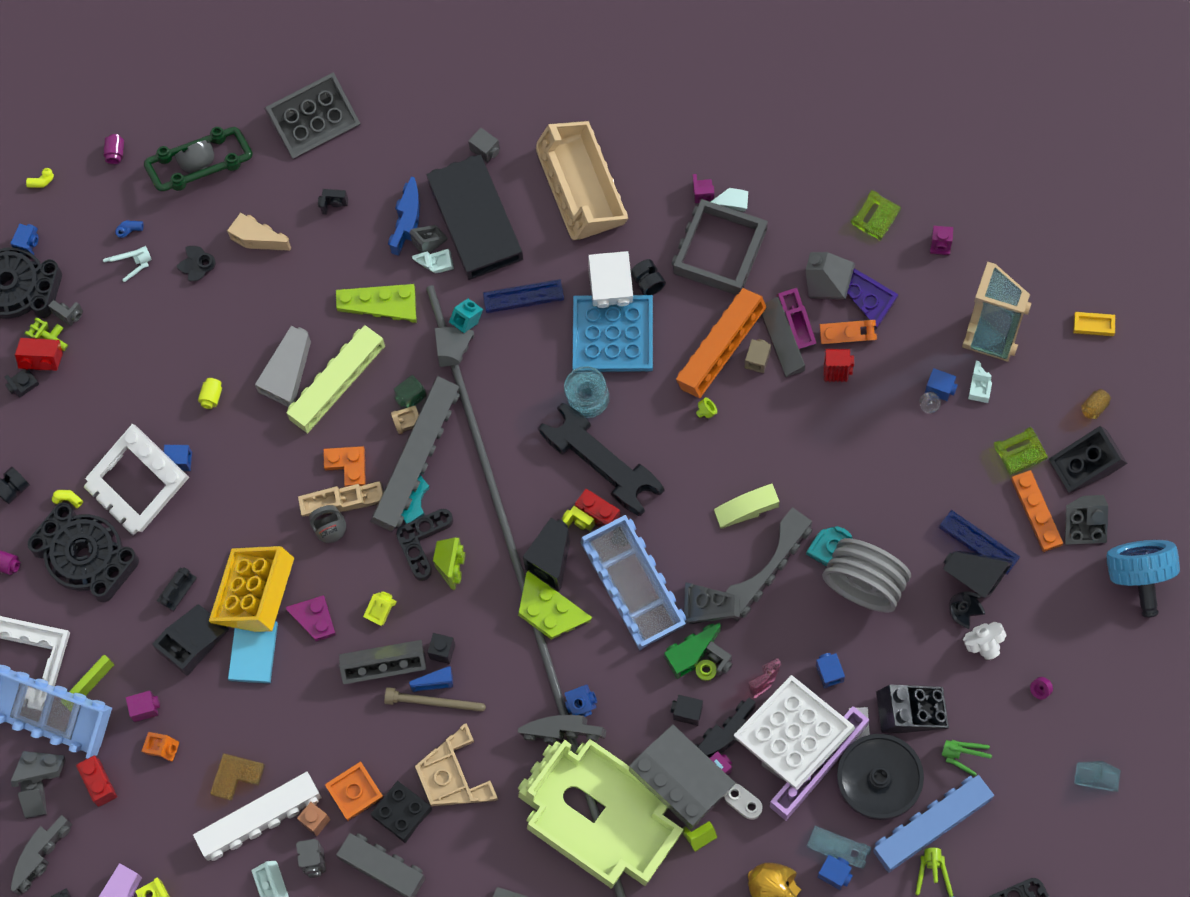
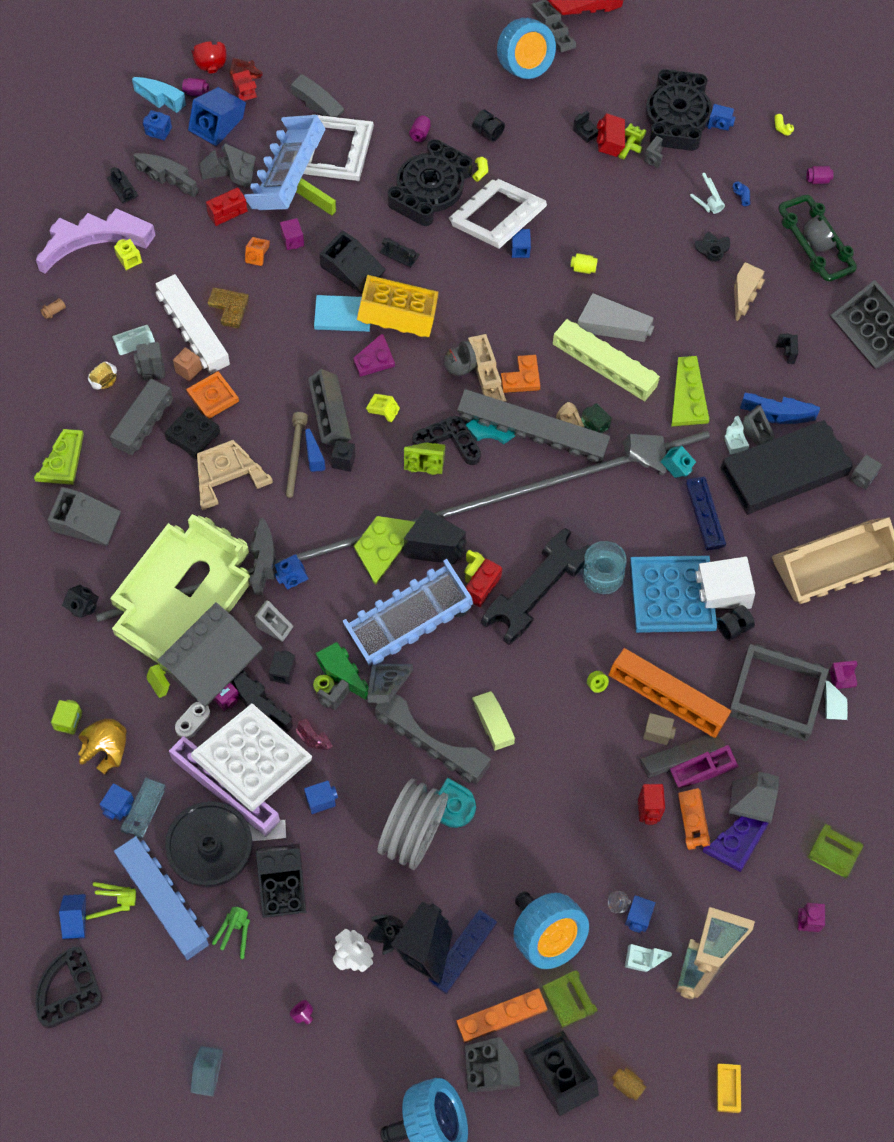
camera: 80 degrees right, 5 degrees down
(636, 720) = (272, 622): none -> light grey slope
(964, 458) = (549, 929): none -> dark azure wheel

